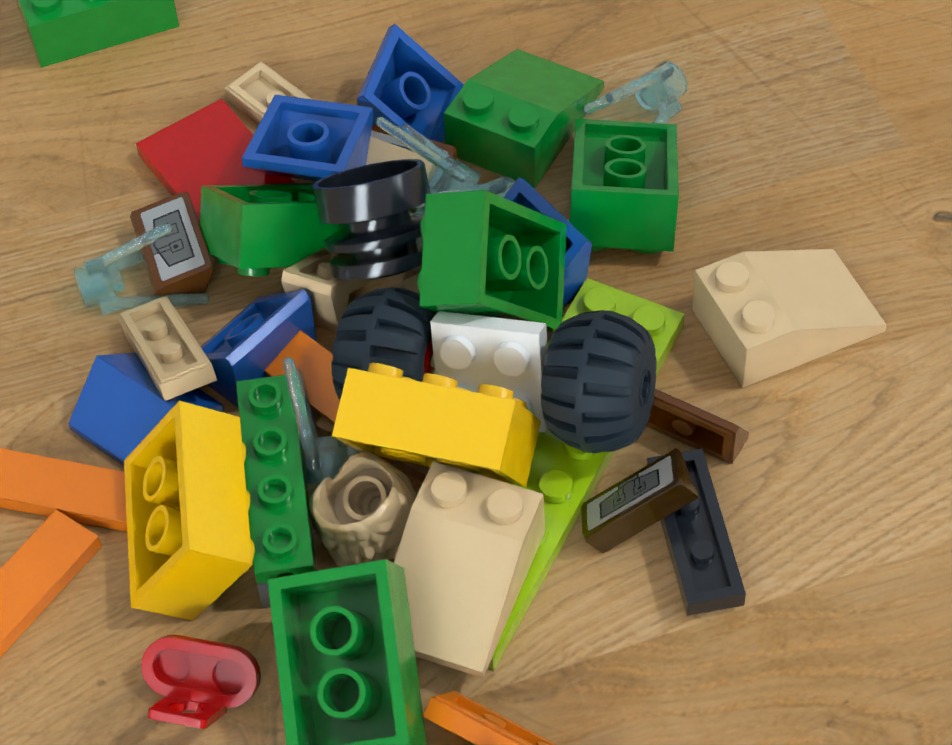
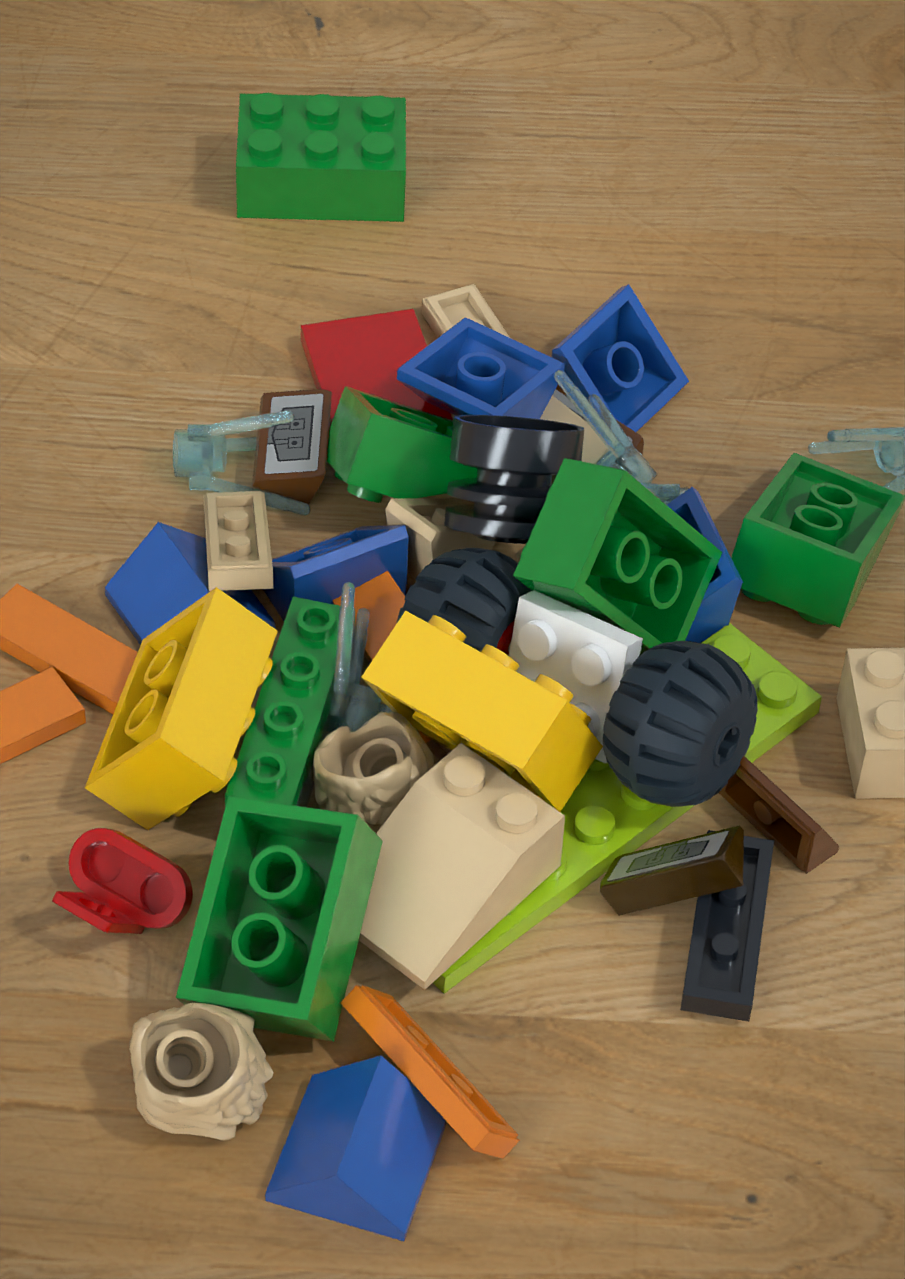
camera: 15 degrees right, 5 degrees down
(518, 115) = (730, 428): green slope -> none

